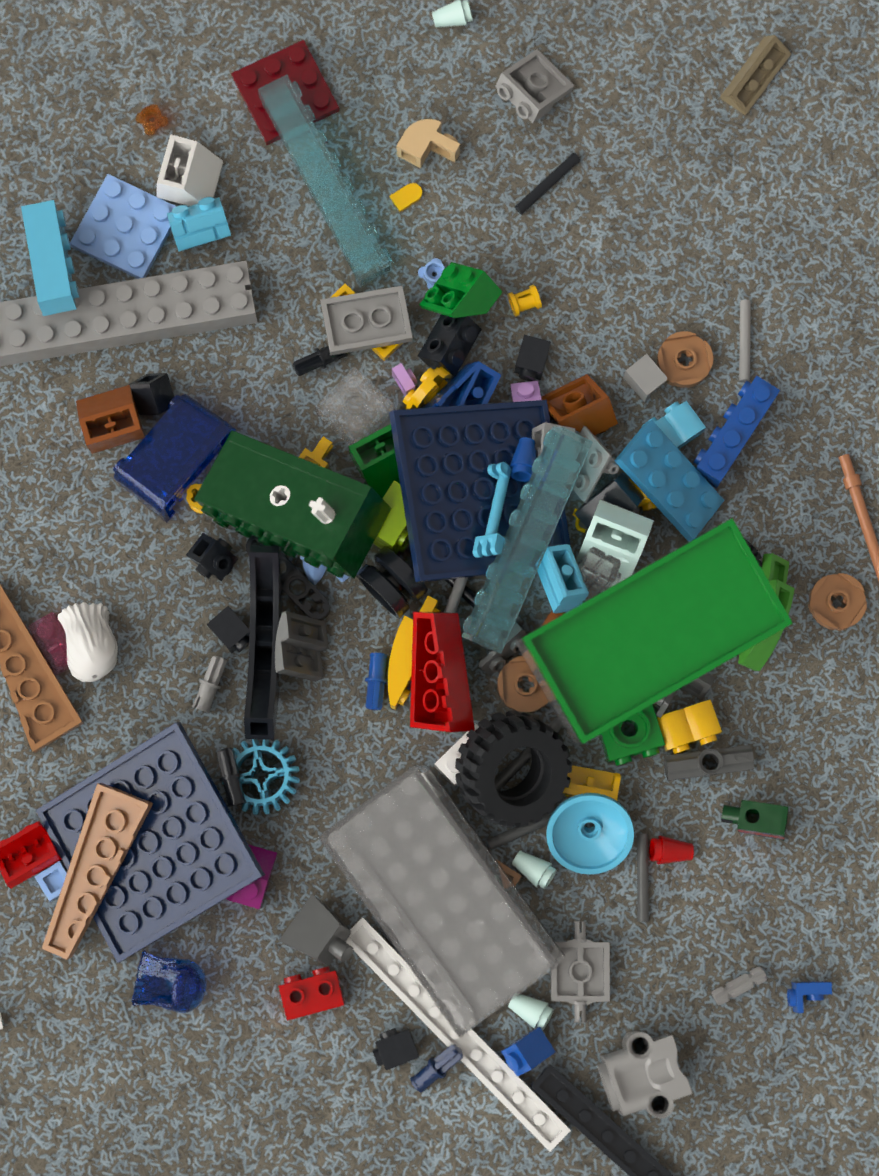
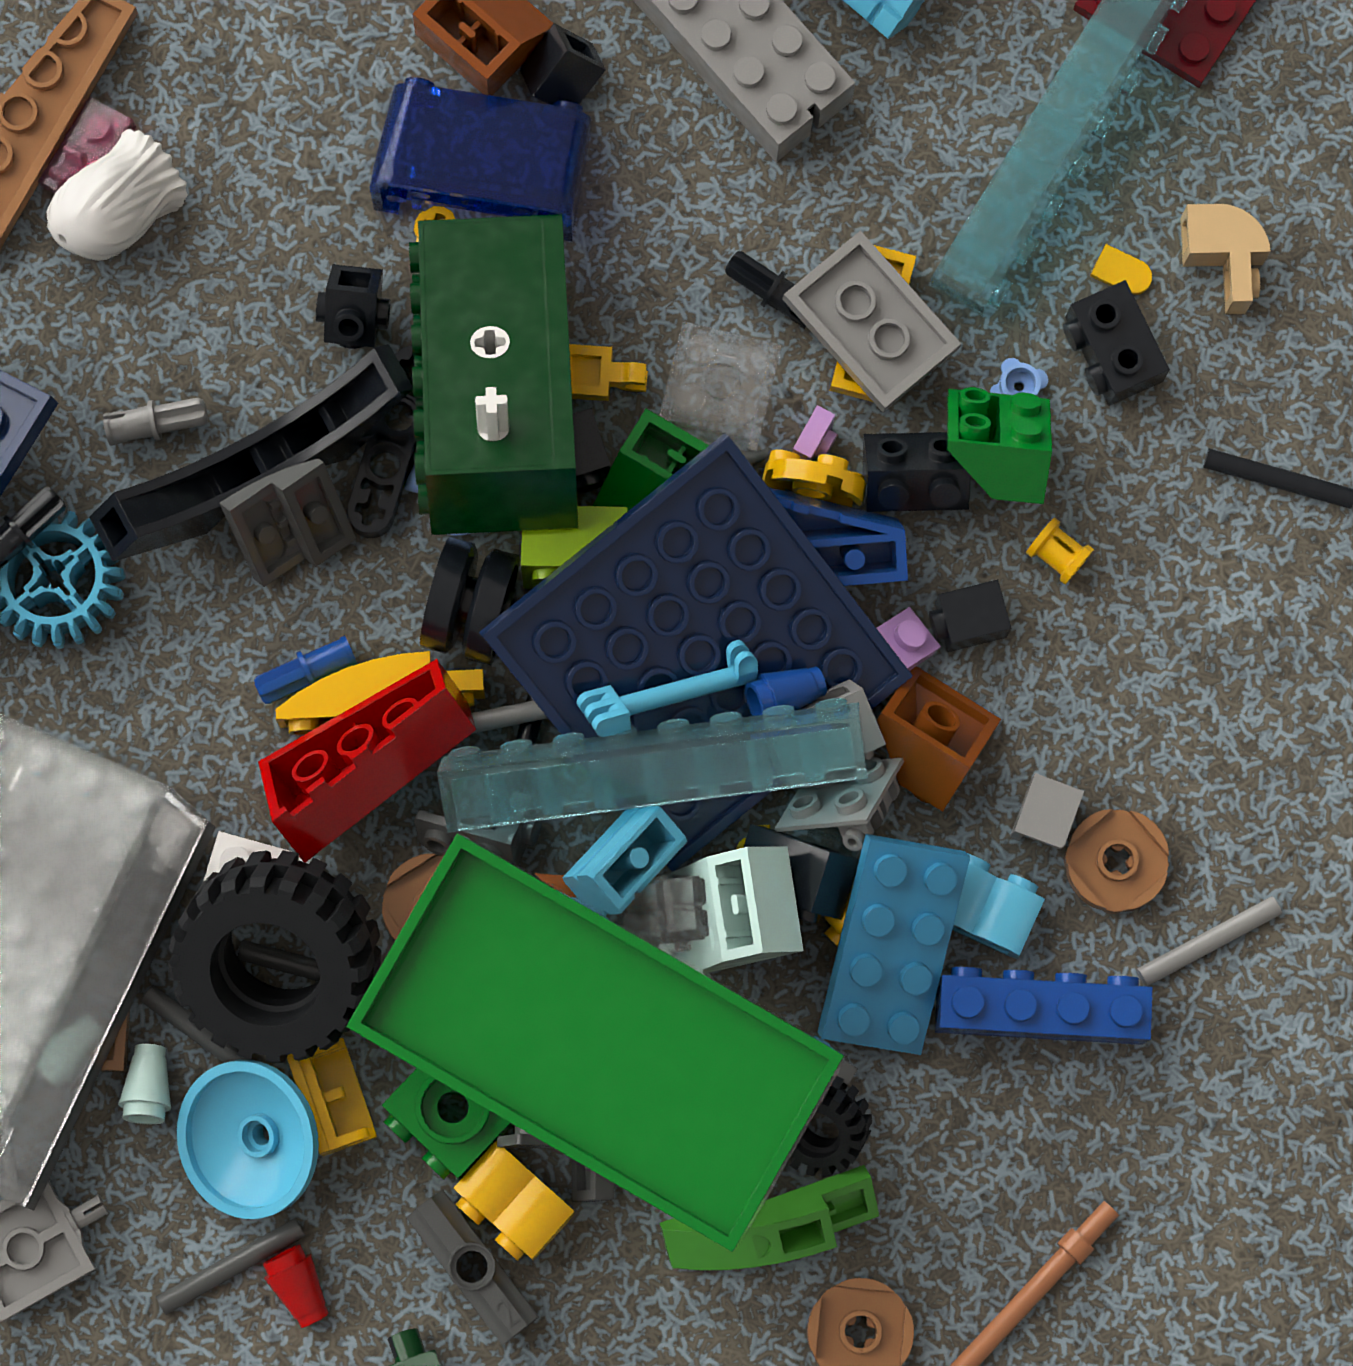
camera: 55 degrees right, 0 degrees up
(230, 630) = (255, 398): black brick -> none
(441, 218) = (1115, 343): none -> black brick

